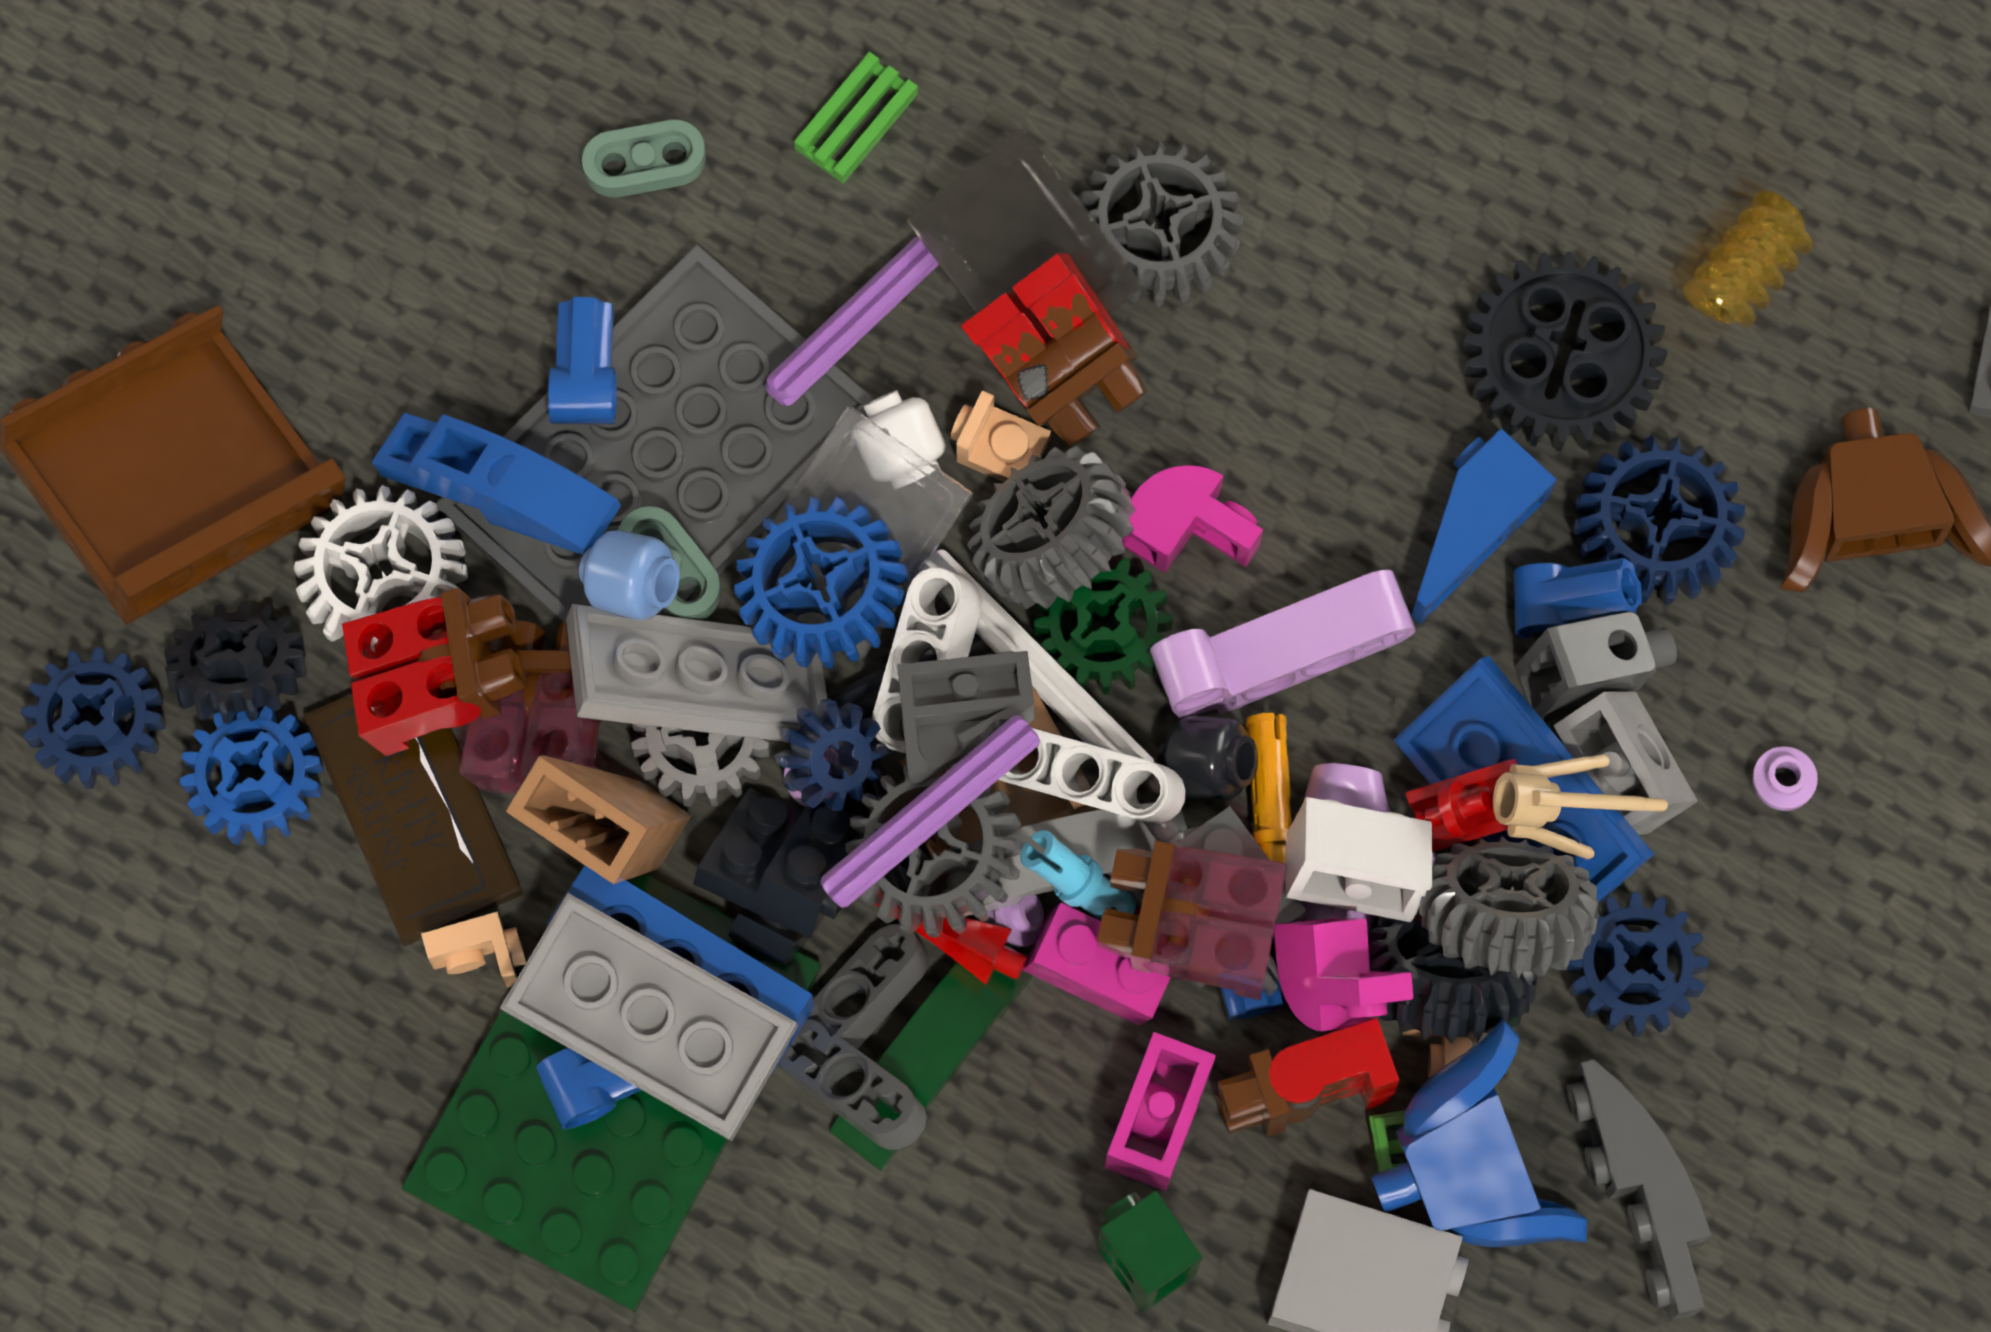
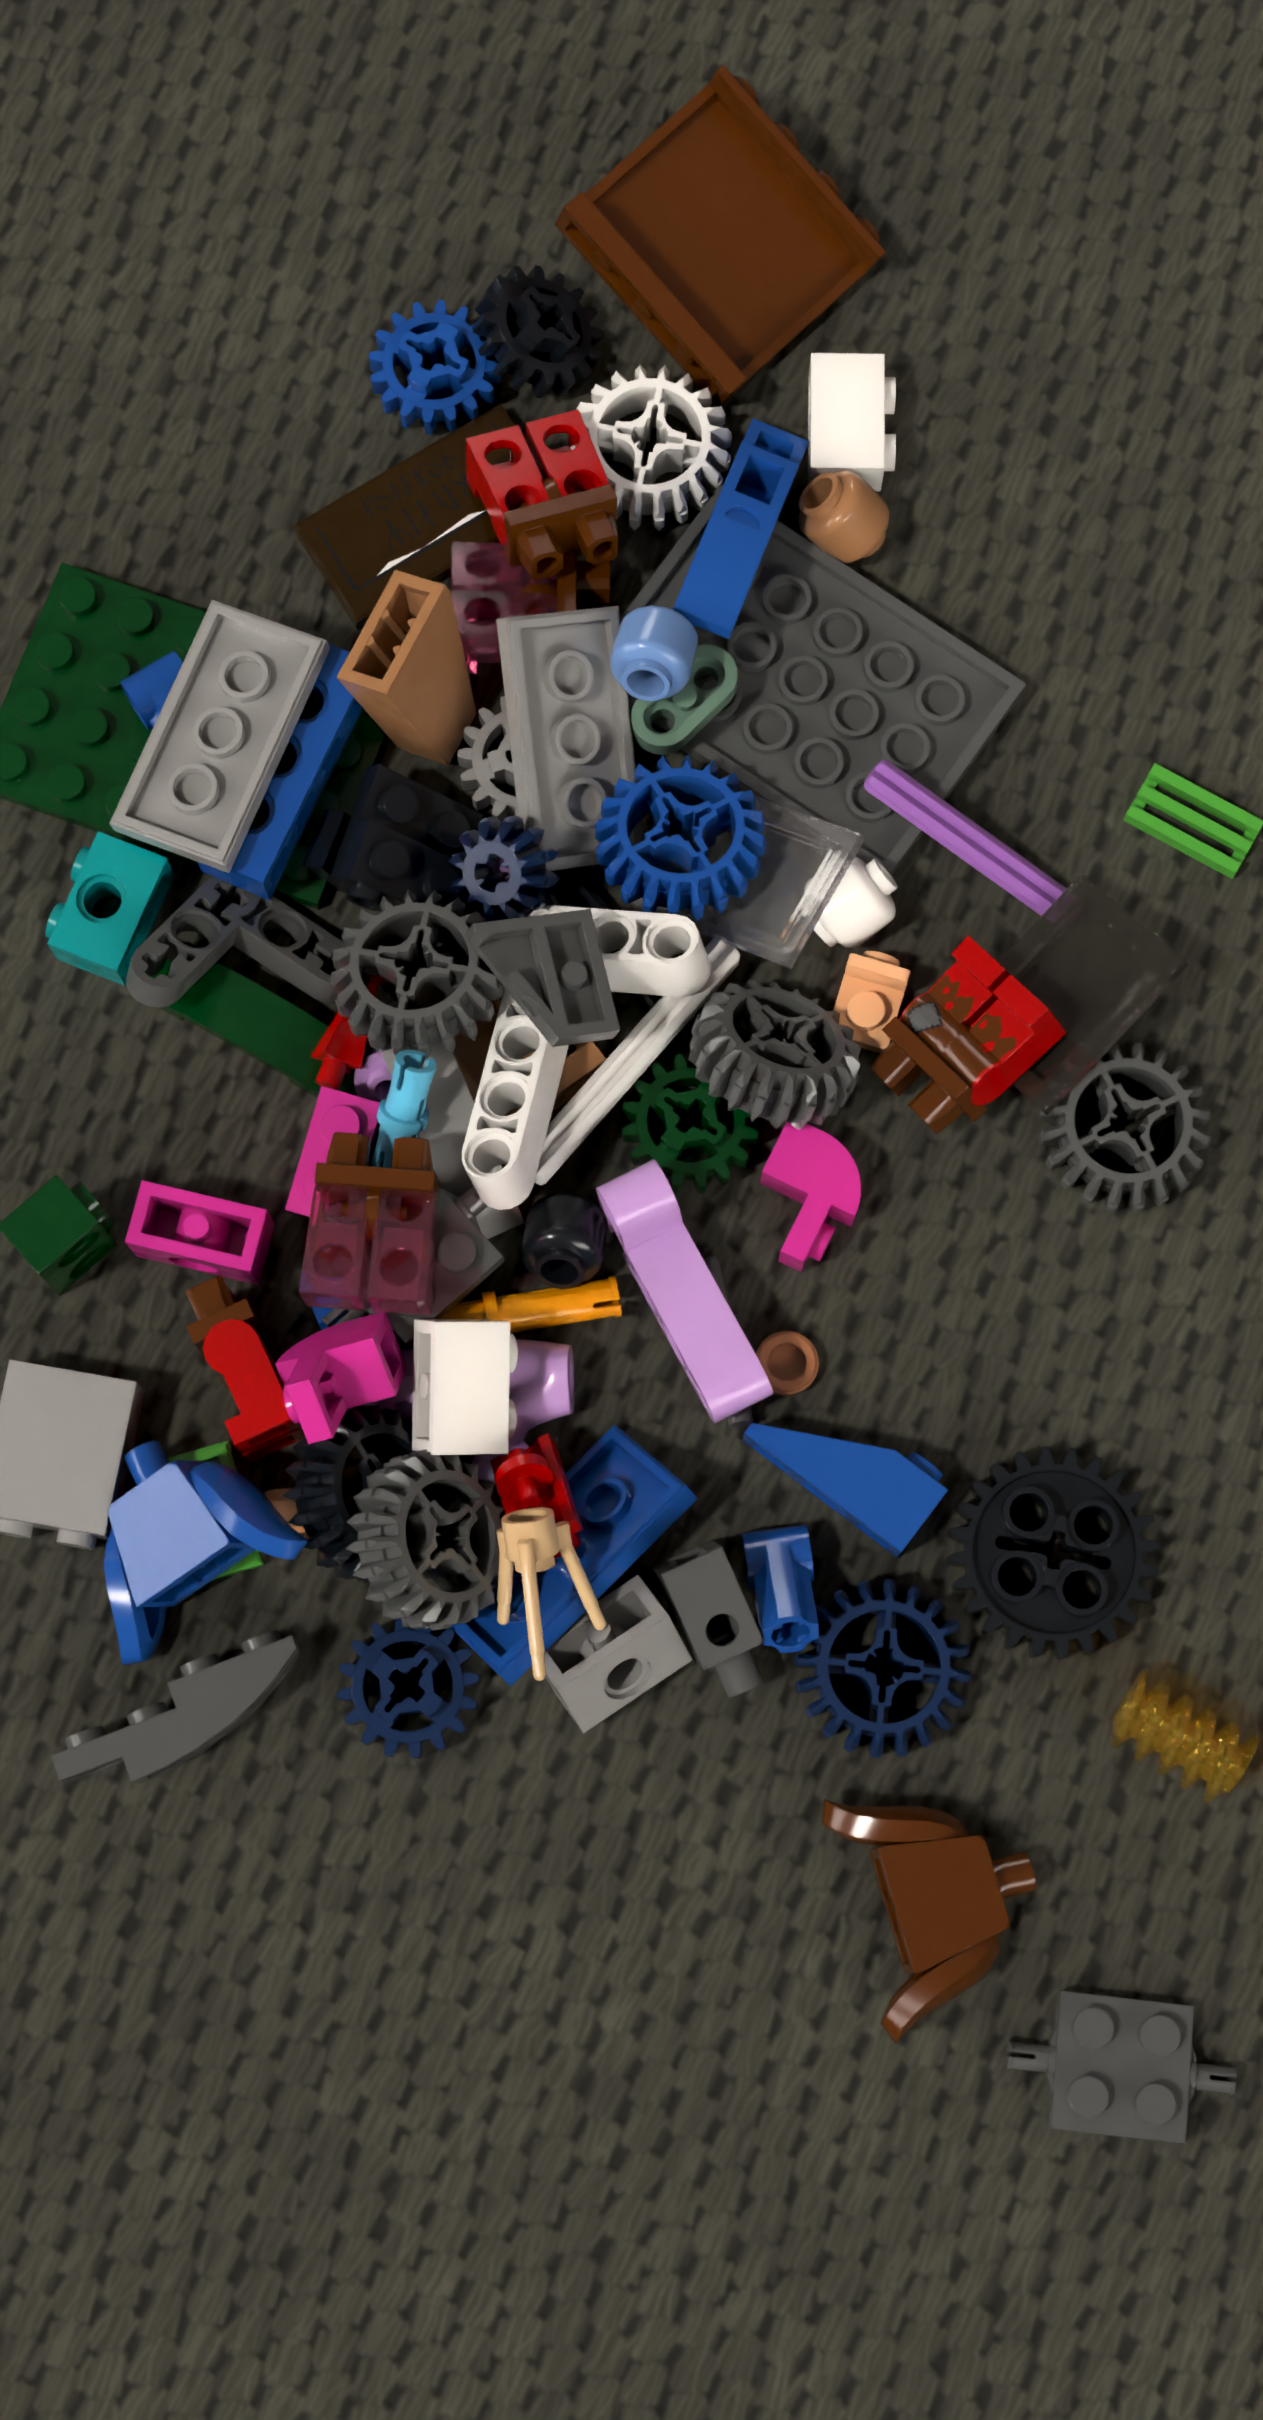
camera: 85 degrees right, 5 degrees up
(75, 734) = (470, 245): dark blue gear -> none
(387, 371) = (848, 416): none -> white brick
(464, 944) = (299, 597): light nougat bracket -> none
(493, 388) = (843, 516): none -> medium nougat head
(583, 381) = (858, 592): blue piece -> none
(643, 153) = (1113, 626): sand green plate -> none
(772, 1142) = (103, 871): none -> teal brick
(930, 811) = (439, 954): medium lavender axle -> none
(1347, 561) = (788, 1362): none -> nougat tile
(1777, 795) = (603, 1824): lavender plate -> none

